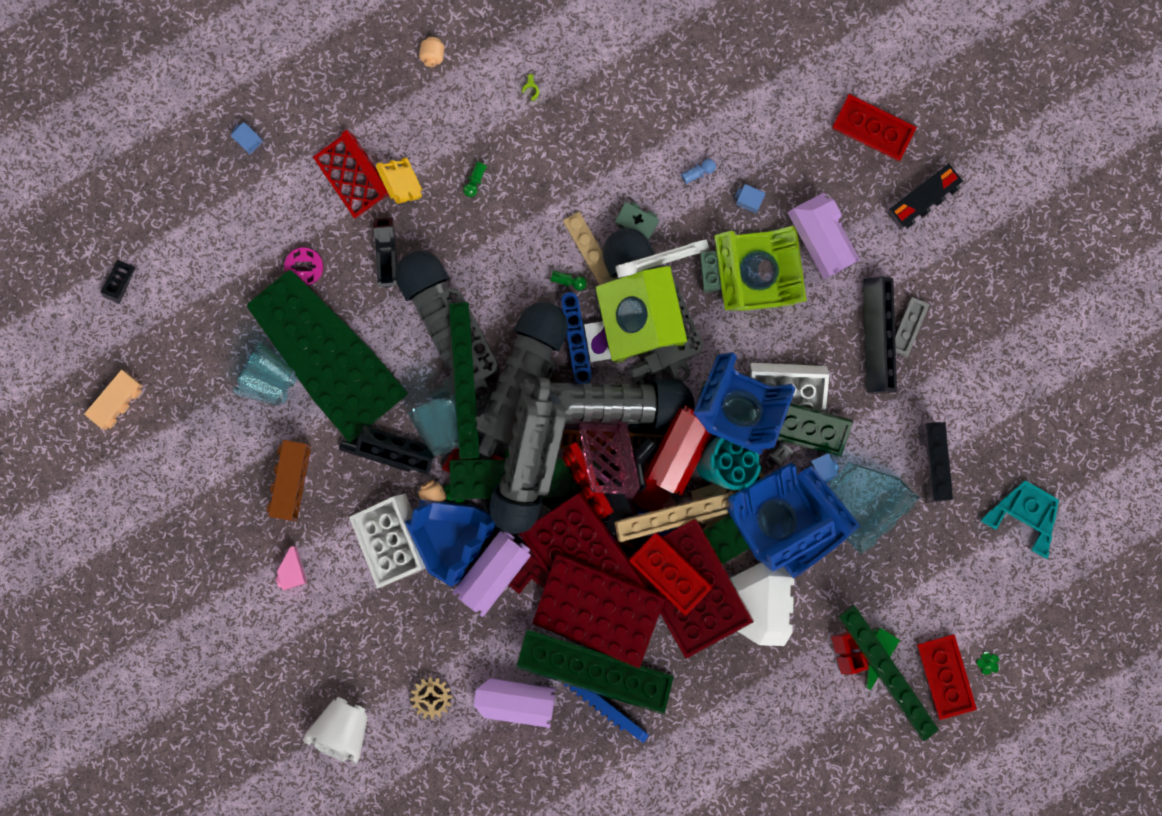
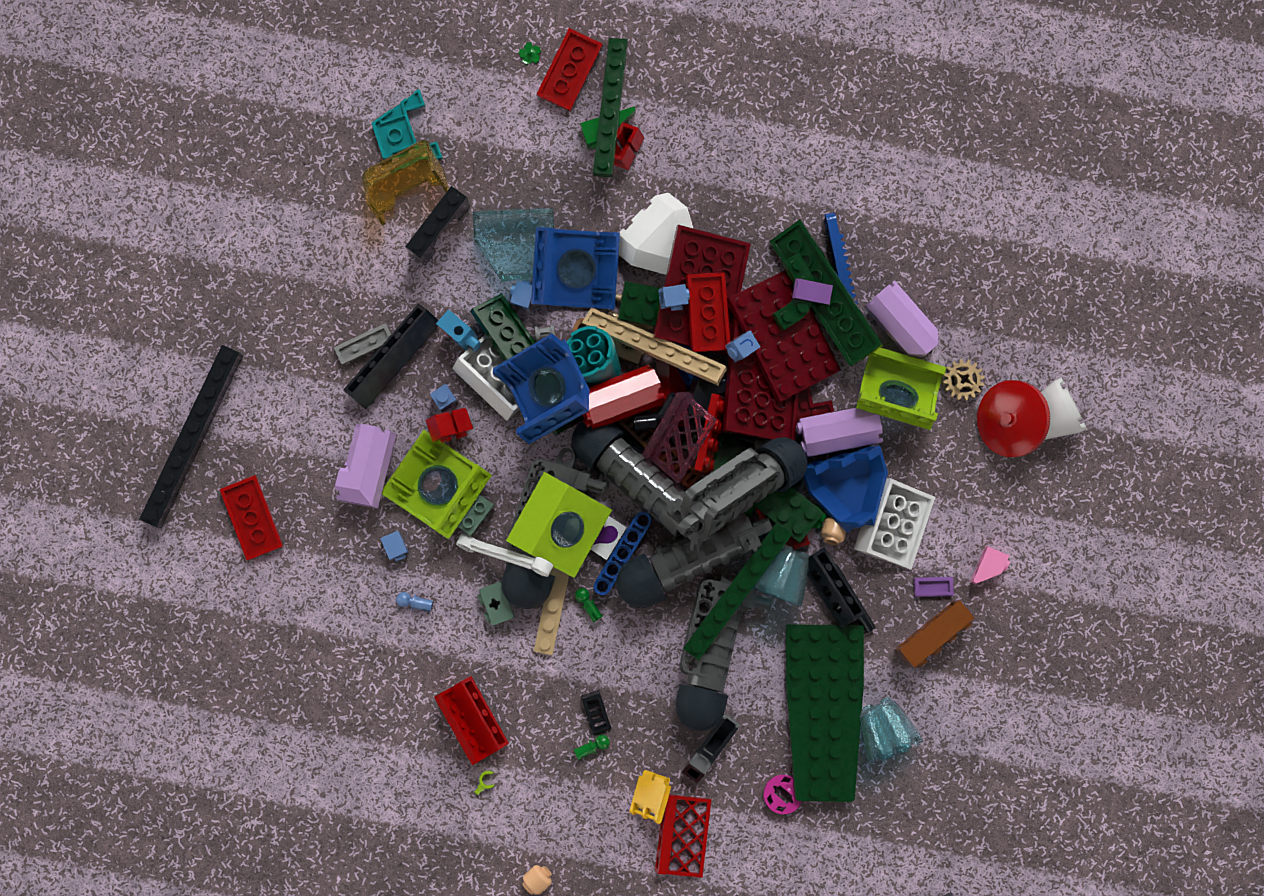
camera: 140 degrees left, 0 degrees up
(114, 400) = (1018, 816): light nougat brick -> none
(321, 518) = (933, 586): none -> medium lavender tile
(366, 698) = (1013, 418): none -> red dish
(473, 646) = (900, 388): none -> lime panel
(510, 210) = (591, 696): none -> black slope
(580, 121) = (471, 720): none -> red brick
(605, 661) = (812, 291): none -> medium lavender tile
(610, 653) = (796, 308): none -> dark green plate
(621, 569) = (742, 346): none -> medium blue brick
(706, 561) = (674, 297): none -> medium blue brick
(778, 519) = (592, 283): blue panel -> none
(790, 321) = (447, 425): none -> red piece
(813, 338) = (444, 398): none -> medium blue brick
(846, 396) = (458, 331): none -> dark azure torso
(924, 196) = (262, 430): black brick -> none
(973, 147) = (191, 437): none -> black brick
(1001, 477) = (399, 174): none -> clear yellow windscreen

